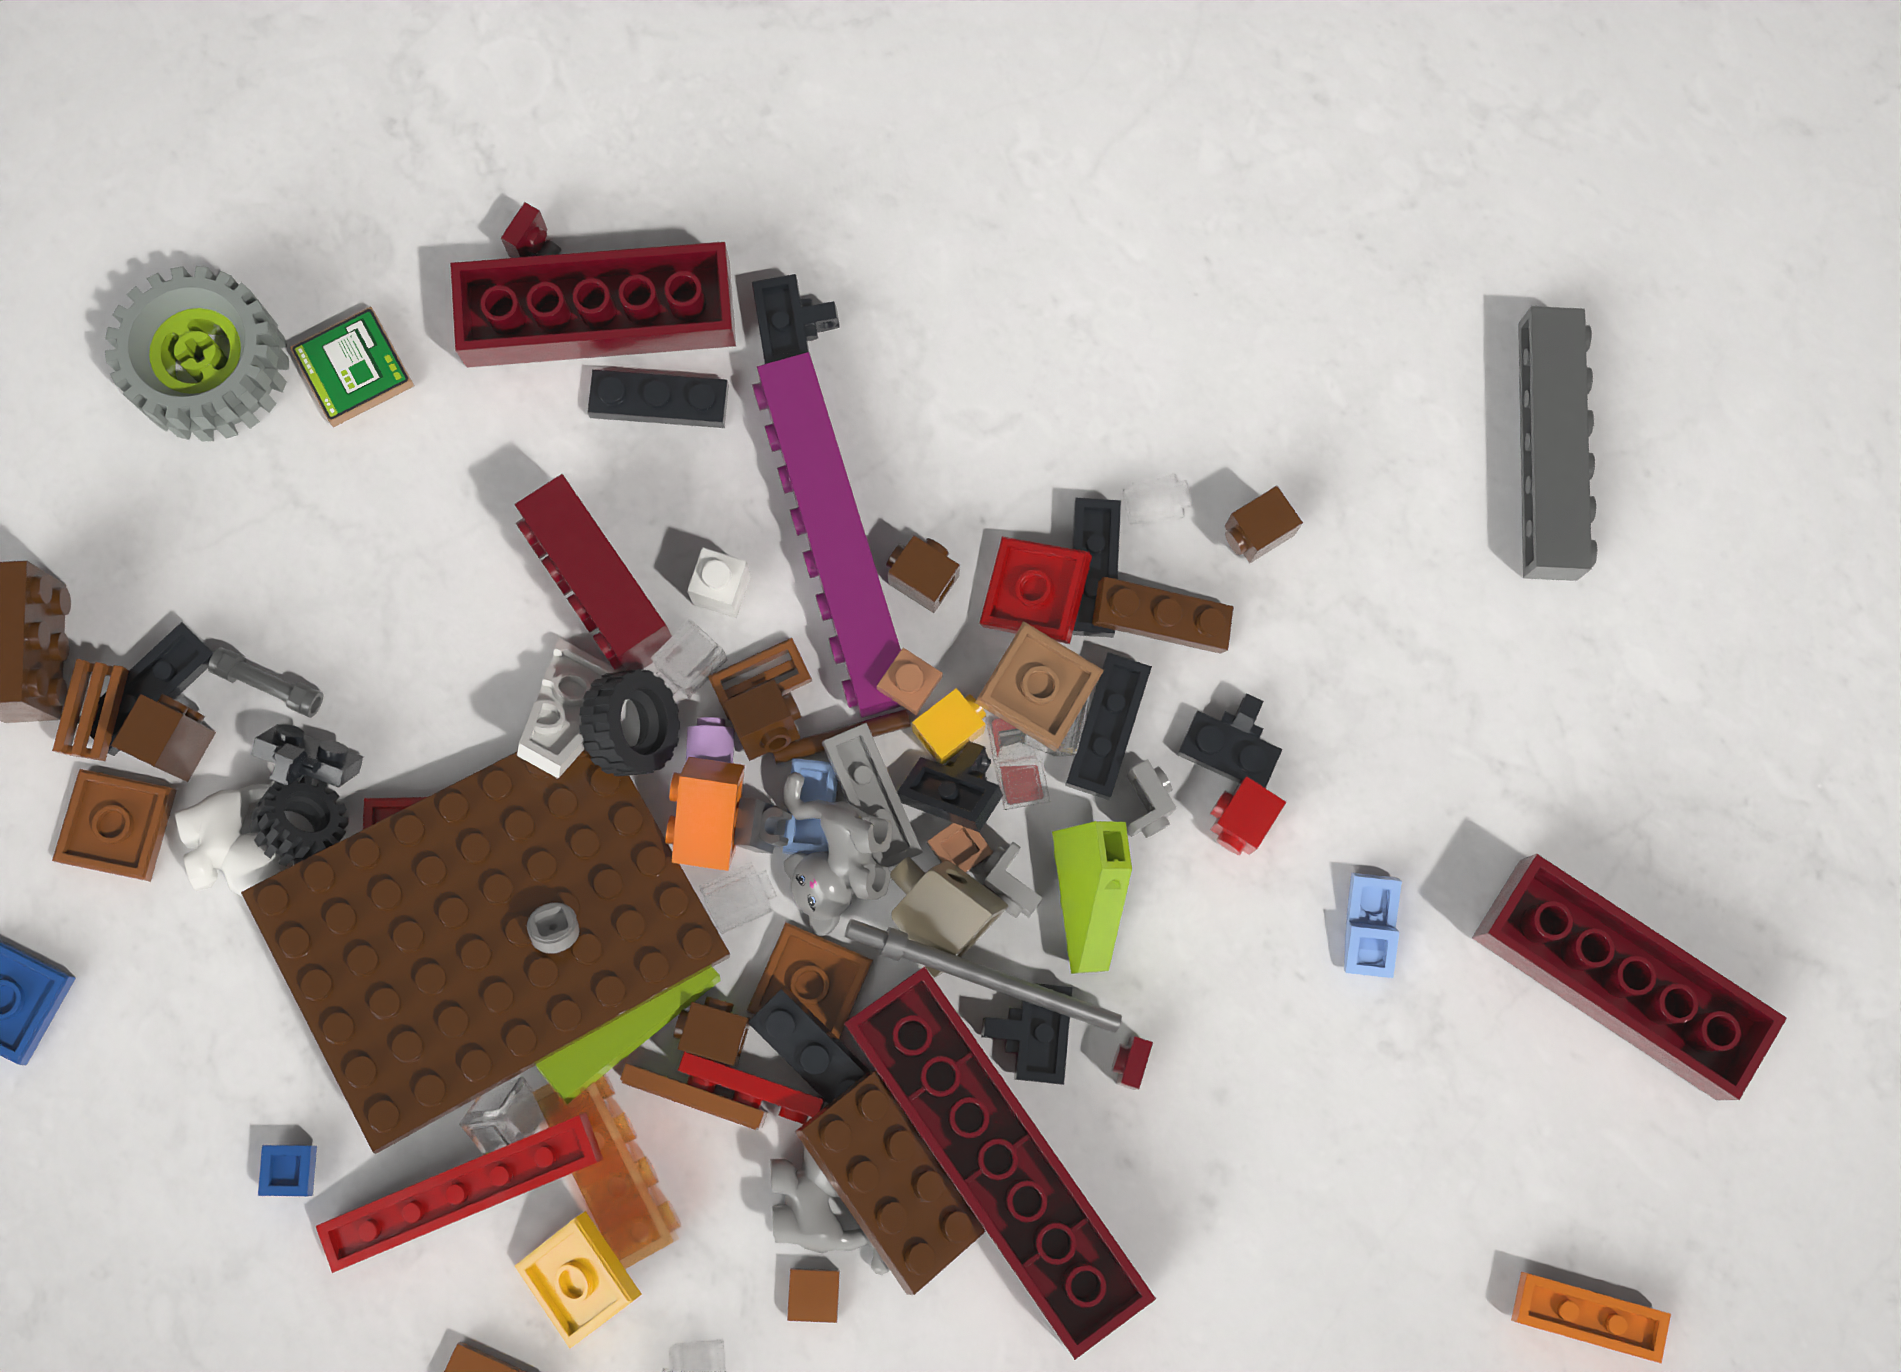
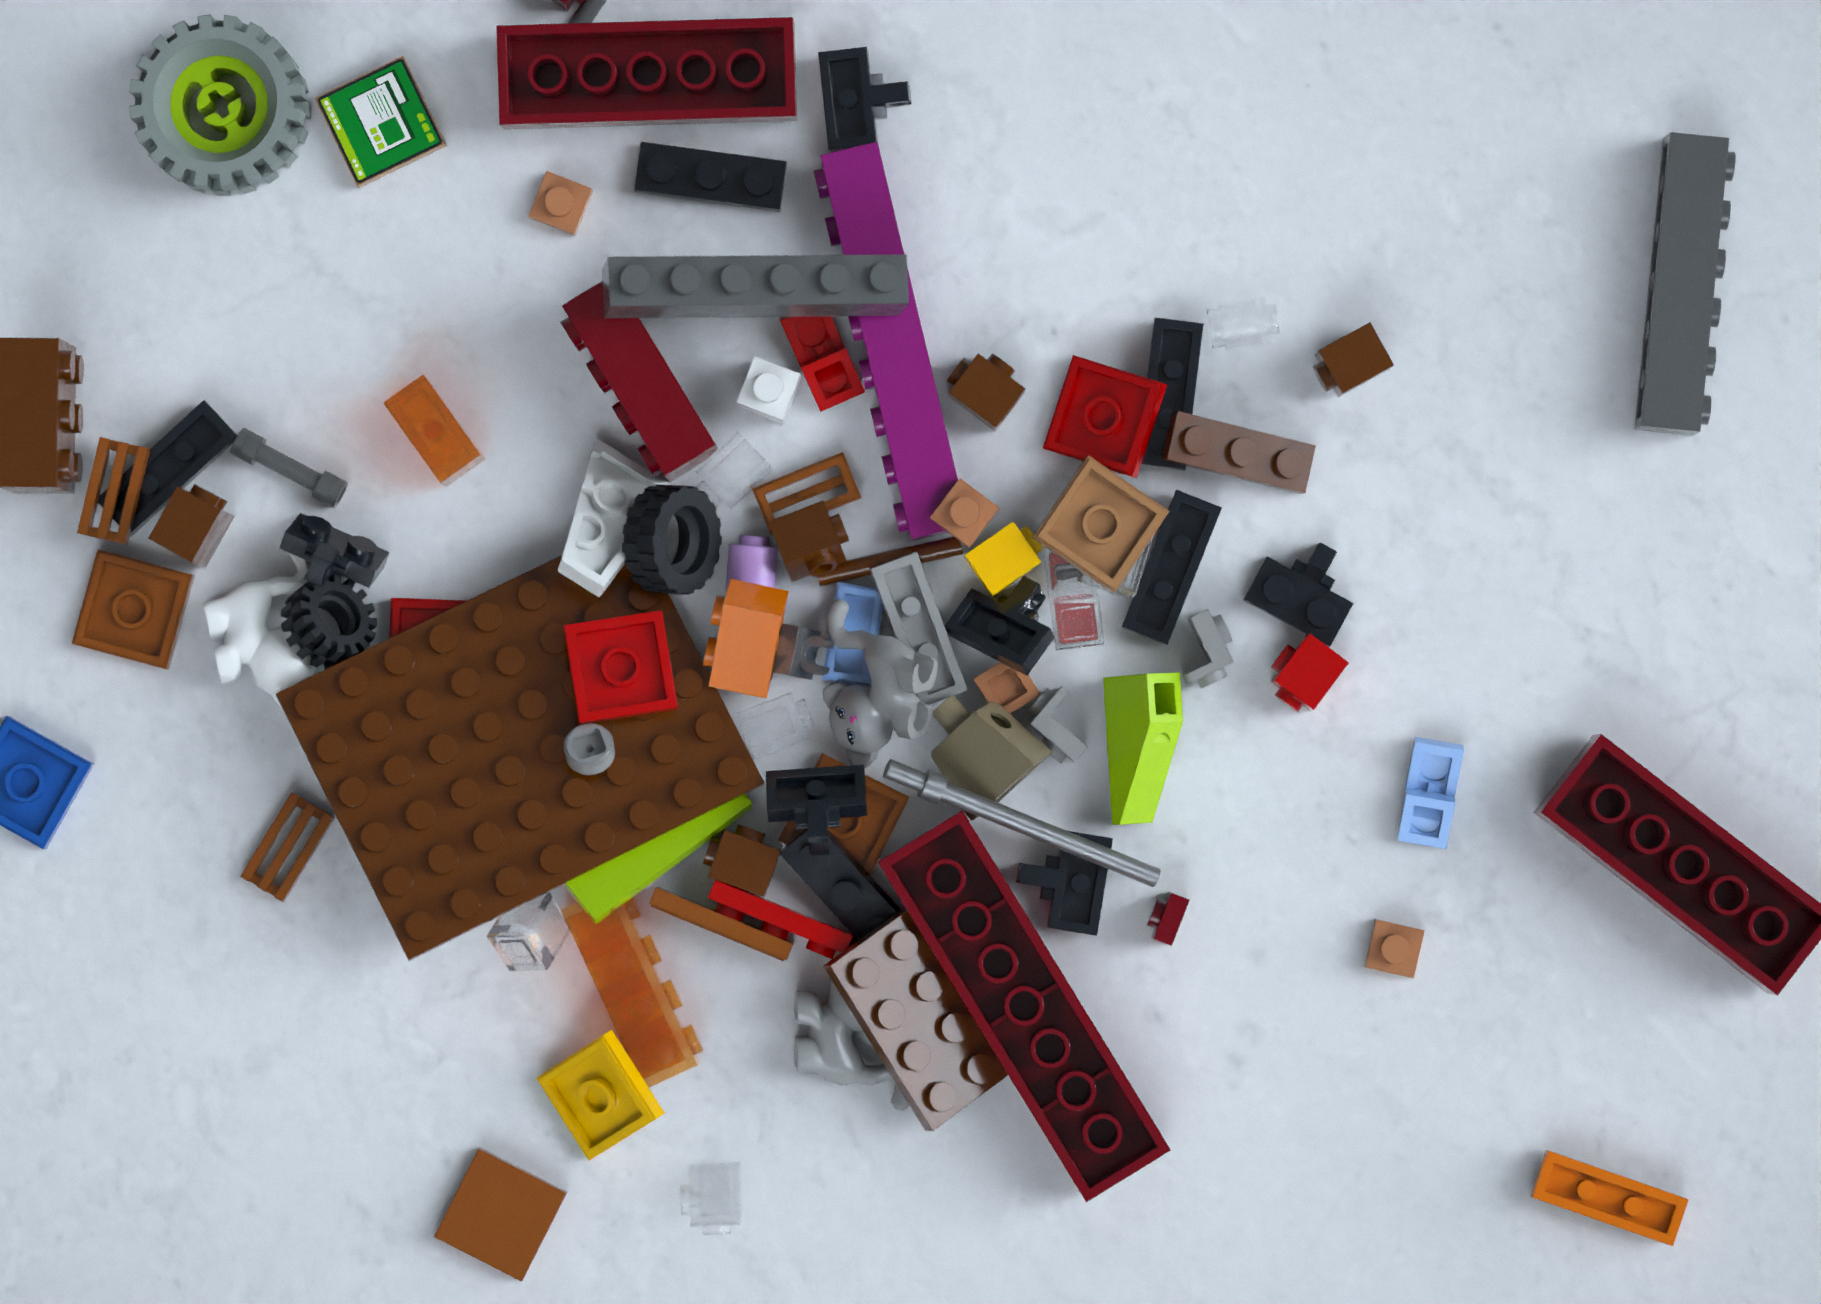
camera: 15 degrees right, 10 degrees up
(242, 1084) = (265, 882): none -> dark orange tile
(287, 1170) = (312, 970): blue plate -> none
(402, 637) = (434, 430): none -> clear orange brick
(459, 1192) = (487, 1003): red plate -> none
(520, 429) = (560, 203): none -> nougat plate
(582, 847) = (620, 667): none -> red plate
(696, 474) = (754, 286): none -> dark grey brick
(768, 551) = (822, 359): none -> red slope
(781, 966) = (816, 799): none -> black hinge
(813, 1295) = (832, 1125): dark orange tile -> none
(1352, 1079) = (1394, 948): none -> nougat plate

